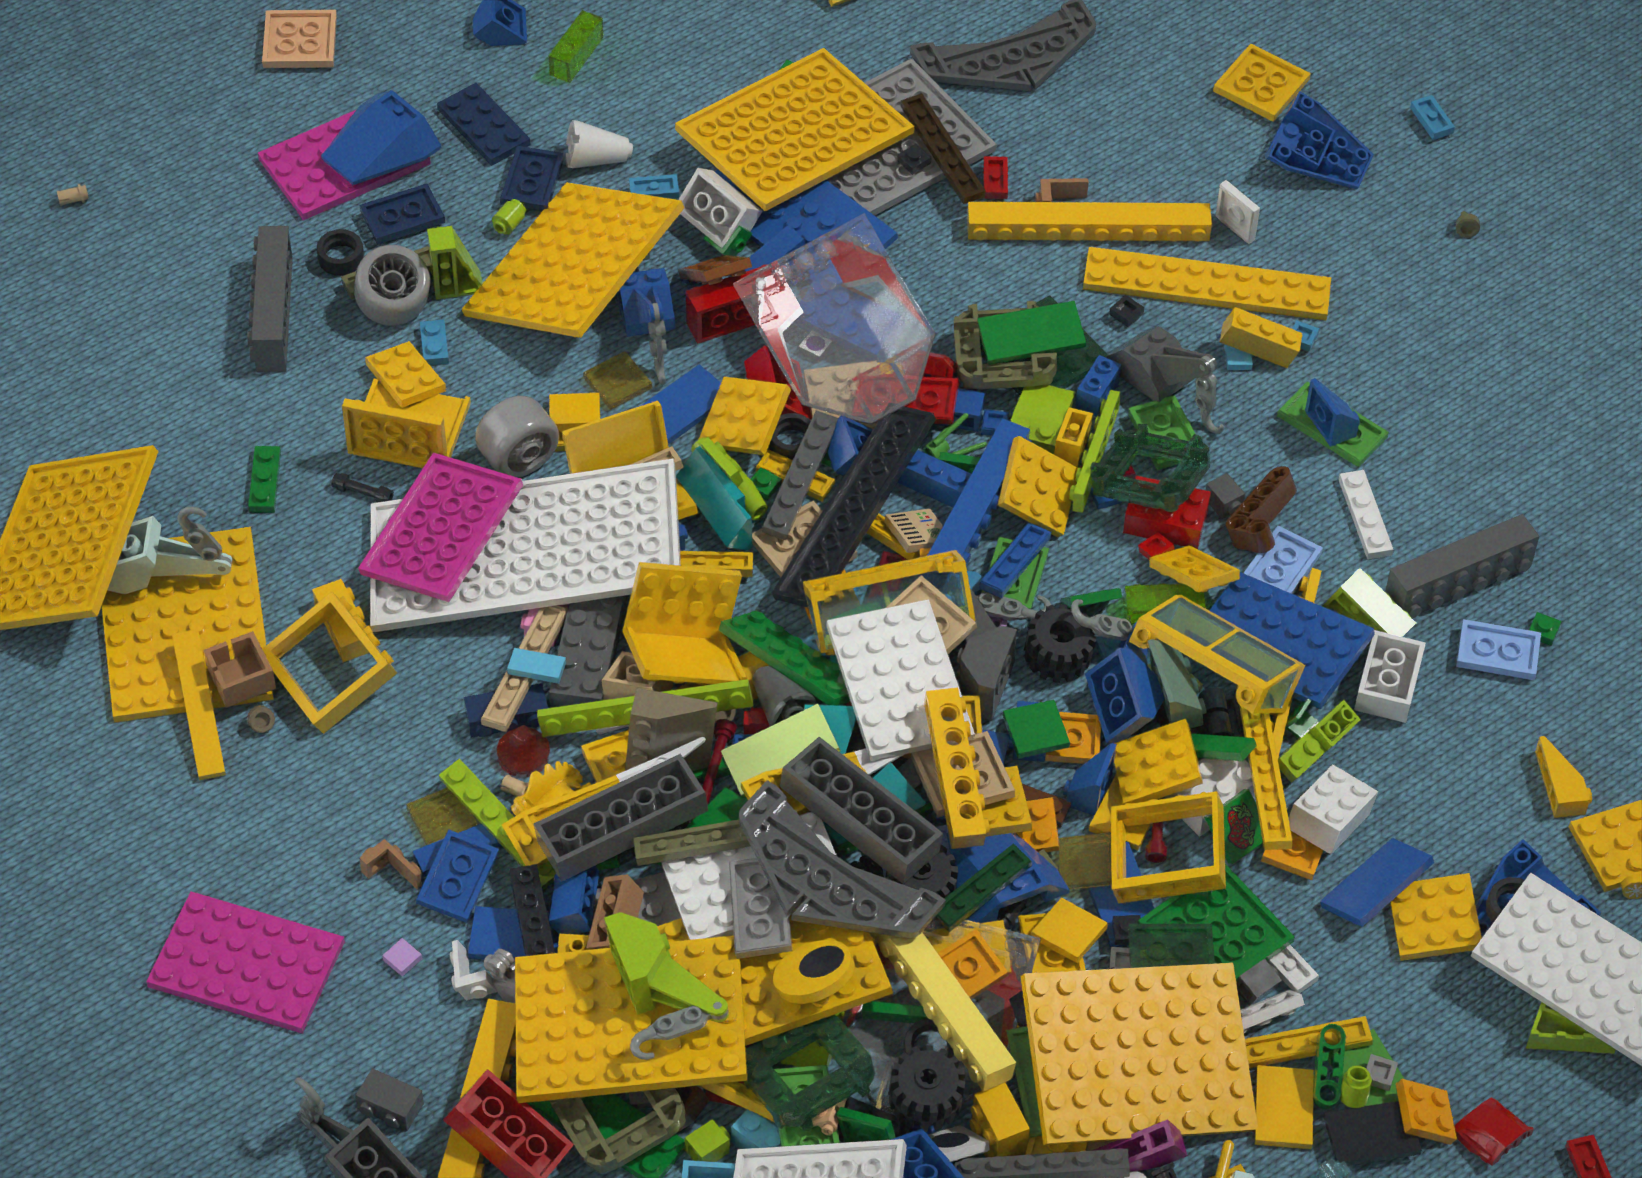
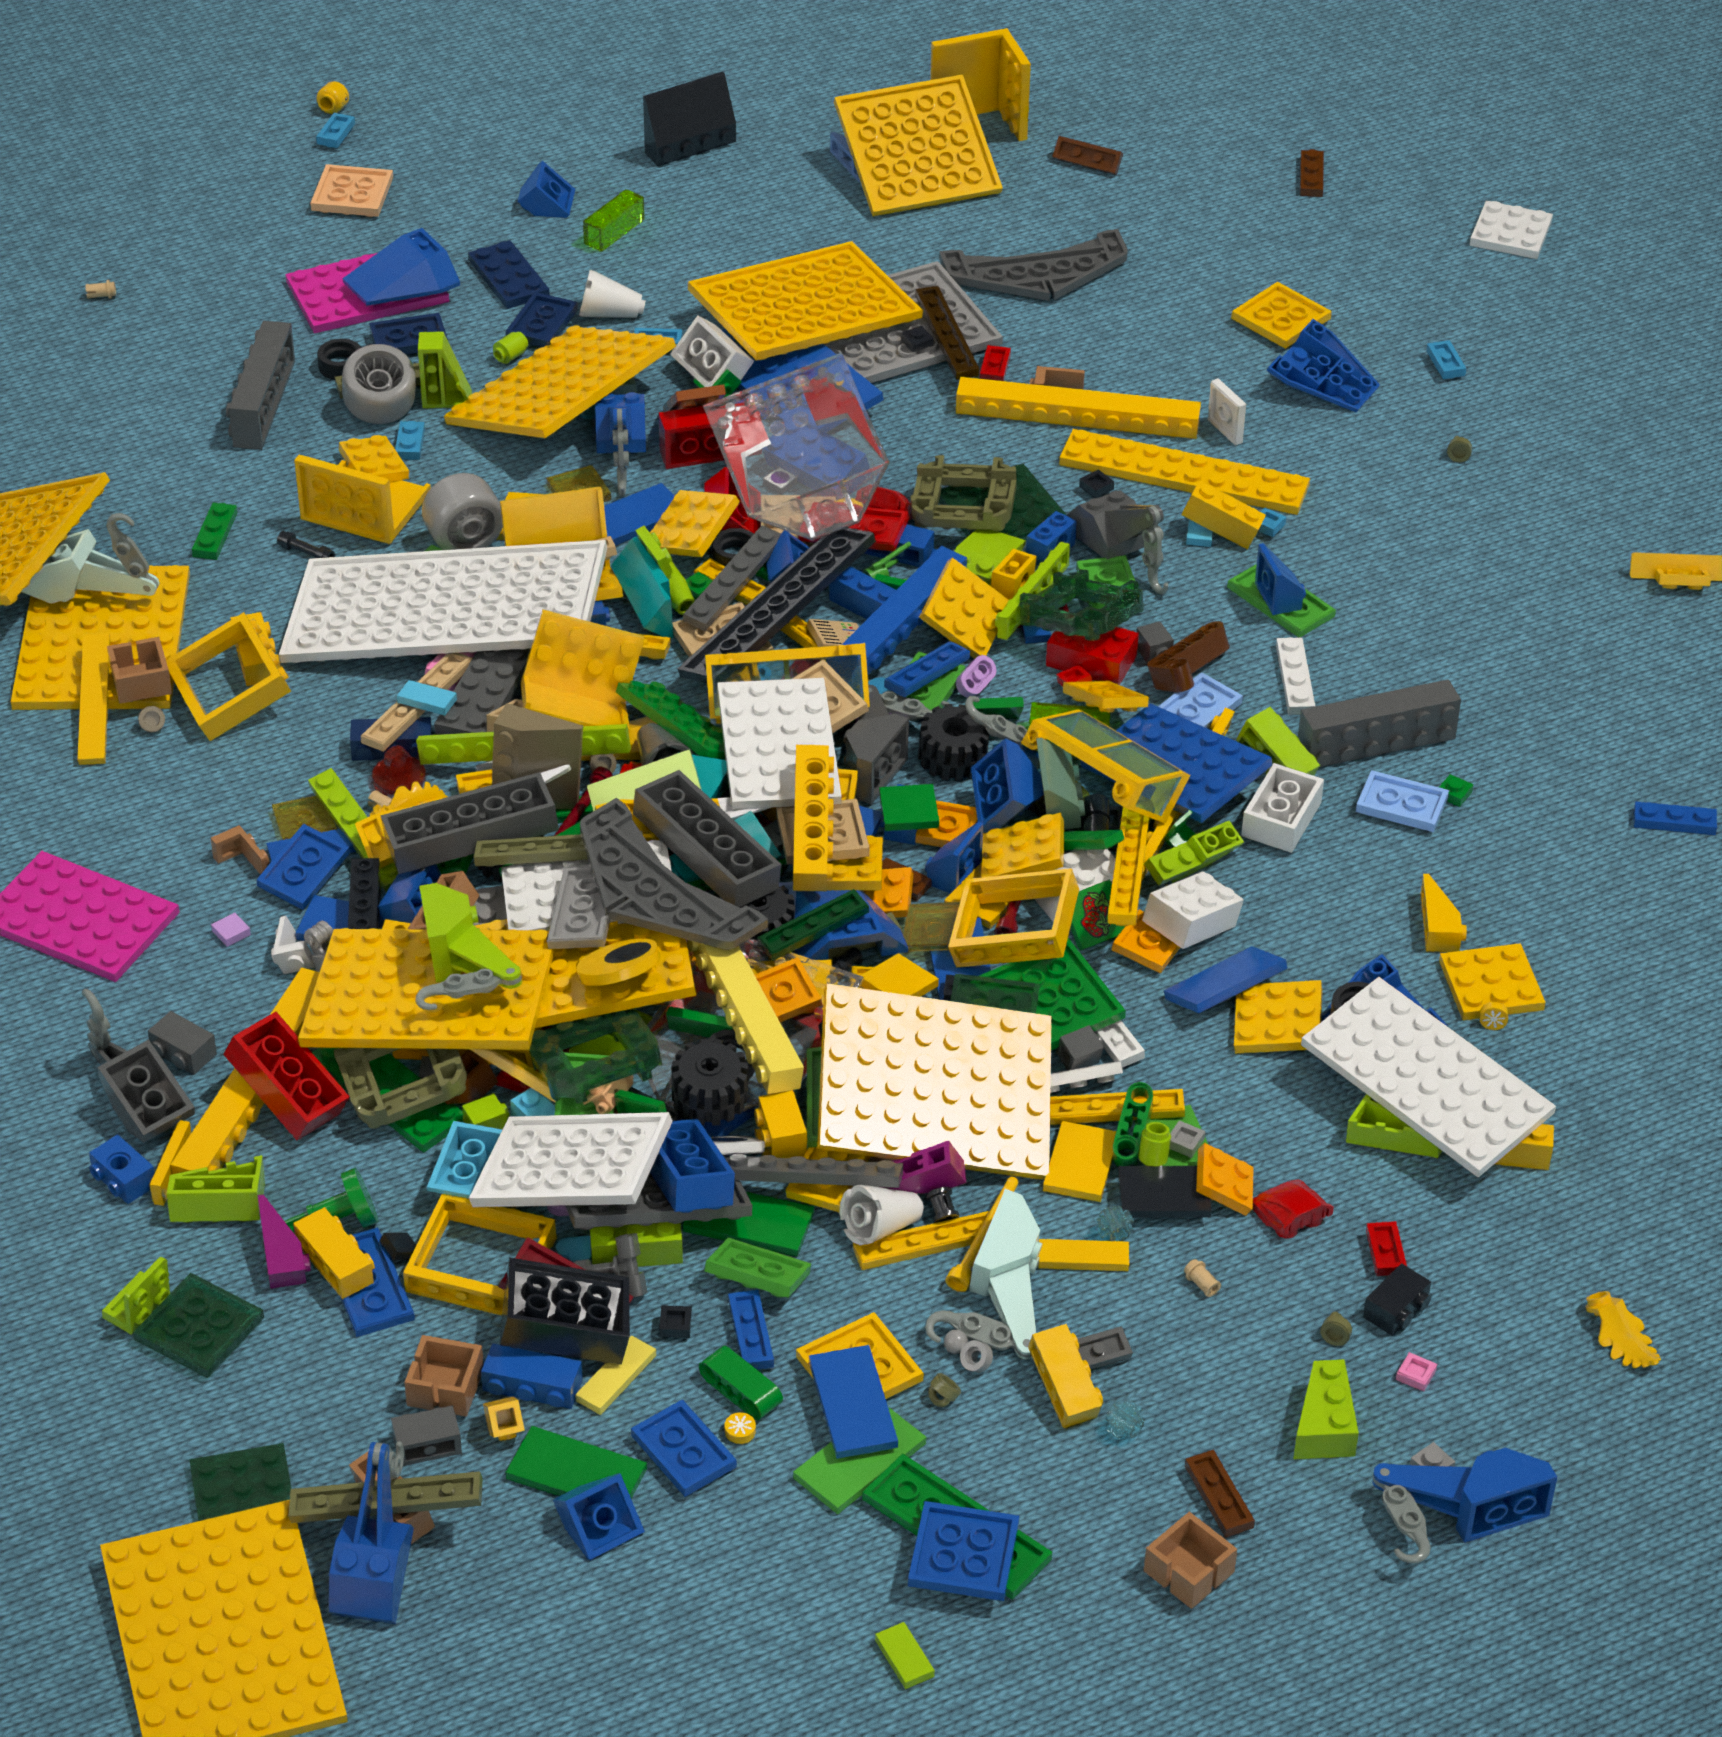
camera: 10 degrees right, 10 degrees down
(440, 527) = (367, 578): dark pink plate -> none
(1031, 332) = (996, 479): green tile -> none
(1059, 562) = (976, 676): none -> lavender plate

